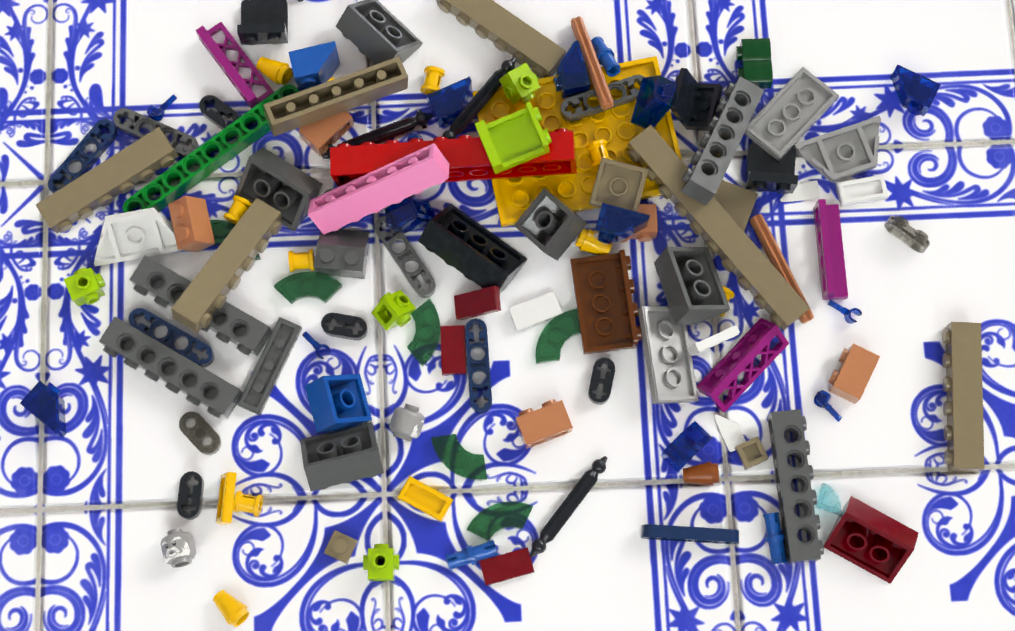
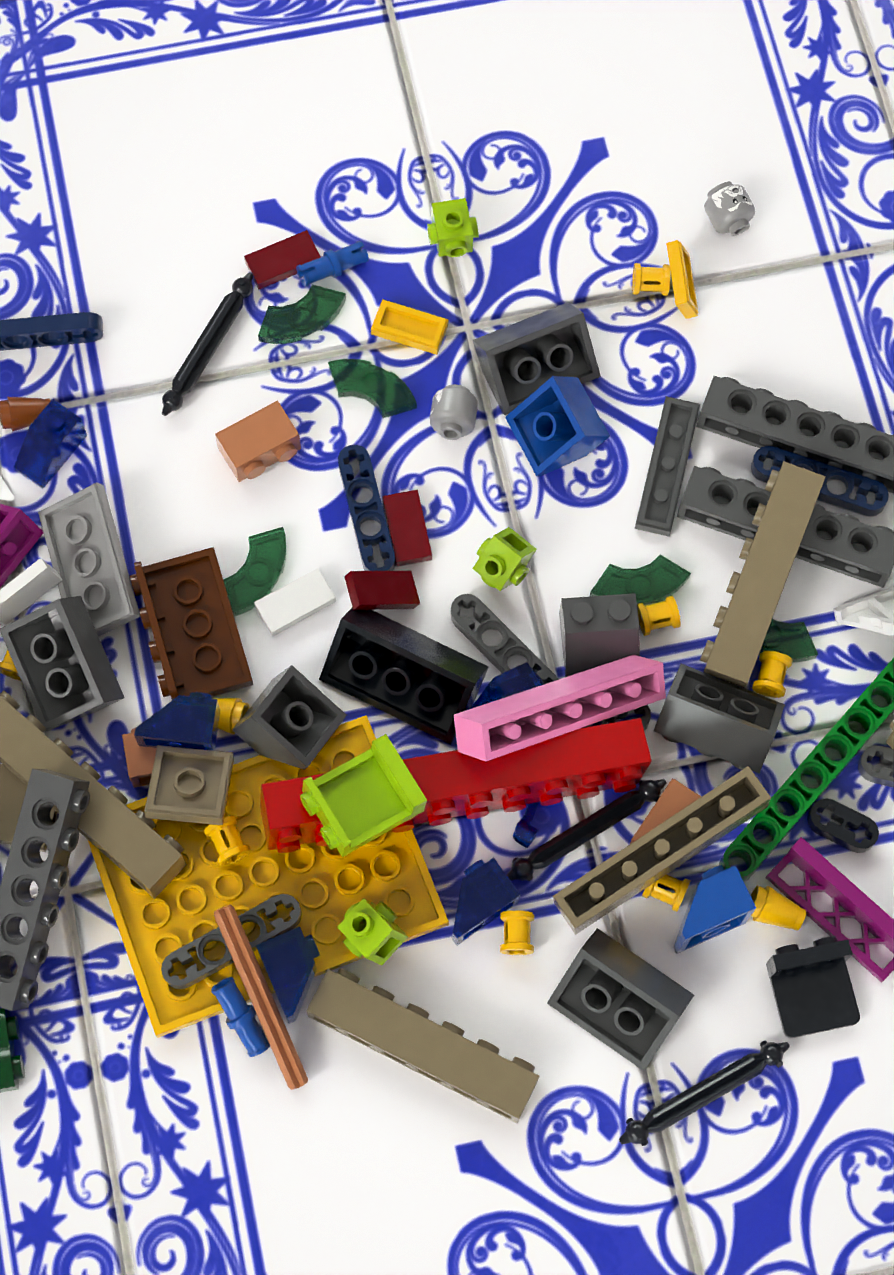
camera: 170 degrees right, 5 degrees down
(184, 495) = (739, 280): black beam -> none
(191, 224) = (835, 635): nougat brick -> none
(199, 432) = (740, 361): clear smoke plate -> none
(231, 608) = (640, 153): yellow cone -> none
(316, 345) = (604, 502): clear blue hand -> none
(341, 547) = (512, 250): dark tan plate -> none
(343, 332) = (576, 529): black beam -> none
(427, 332) = (450, 546): clear green tile -> none
(479, 100) = (435, 900): black wheel -> none
(607, 382) = (175, 517): black beam -> none
(653, 101) = (149, 939): clear blue slope -> none
(695, 102) = (81, 962): black bracket -> none

